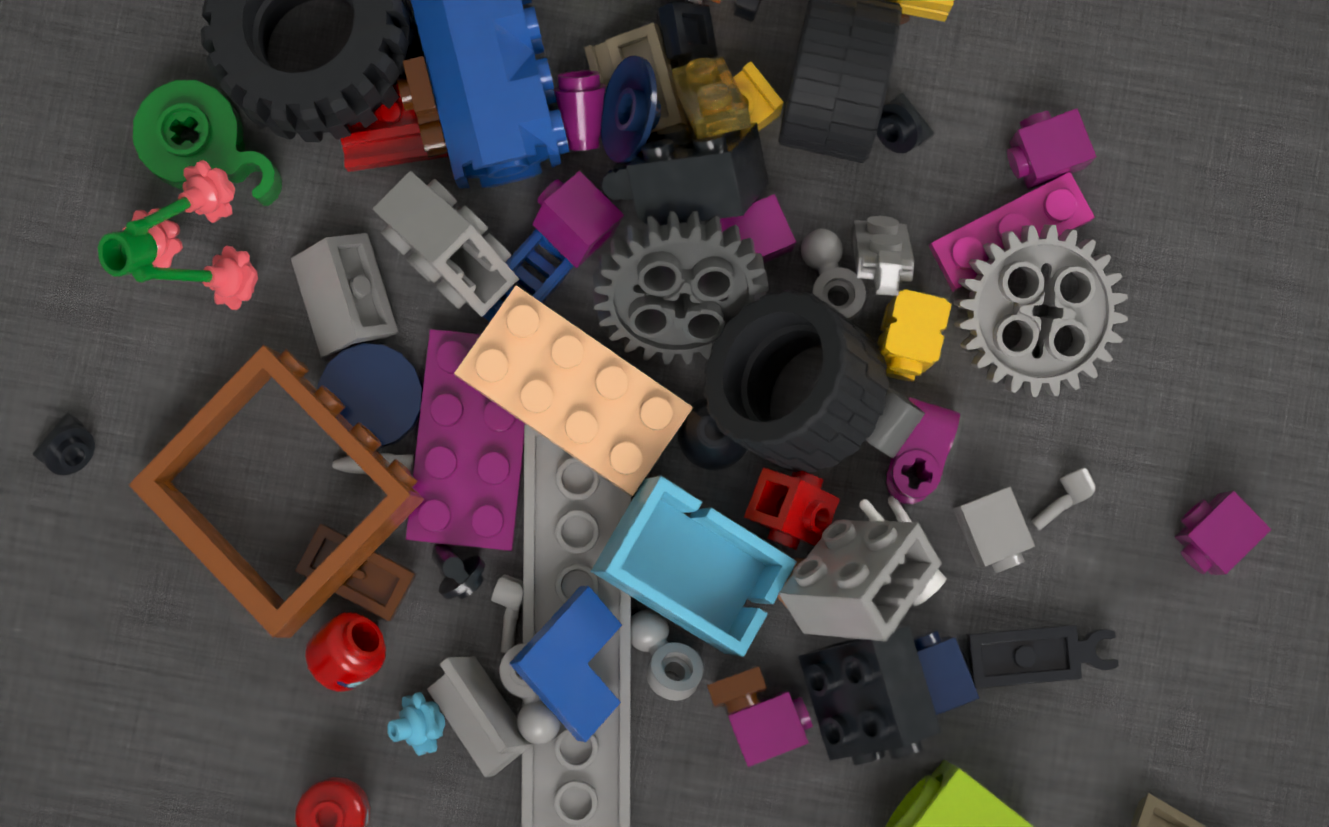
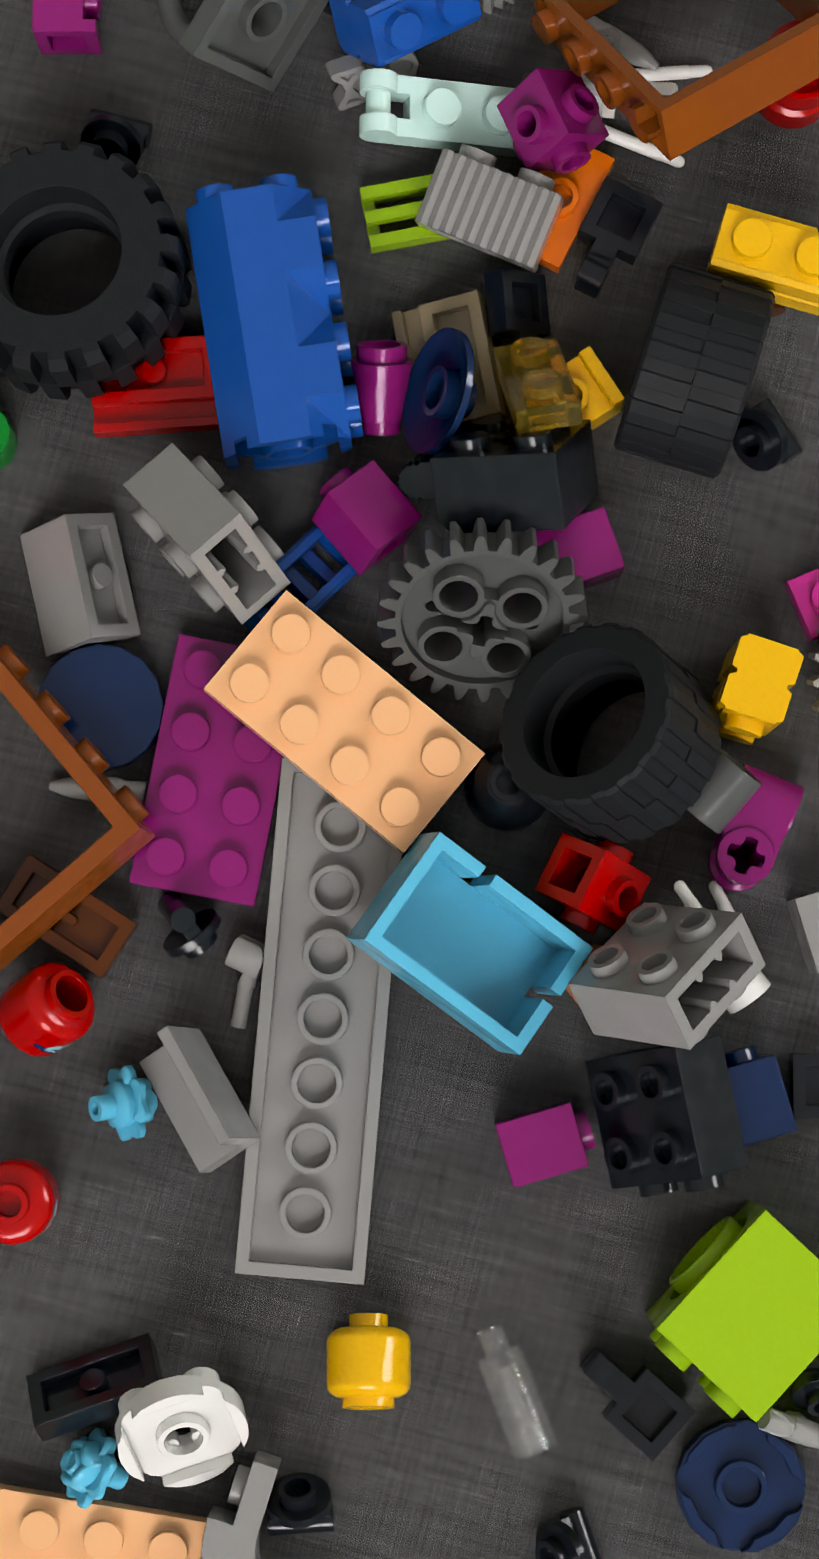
camera: 10 degrees right, 0 degrees up
(418, 95) = (189, 353): reddish brown plate -> none
(535, 719) = (268, 1108): light grey plate -> none
(558, 661) = (298, 1044): blue tile -> none
(650, 635) = (410, 1020): light grey plate -> none
(737, 690) = (509, 1095): reddish brown plate -> none
(822, 252) = (655, 581): light grey plate -> none
(883, 253) = (728, 588): light grey hinge -> none

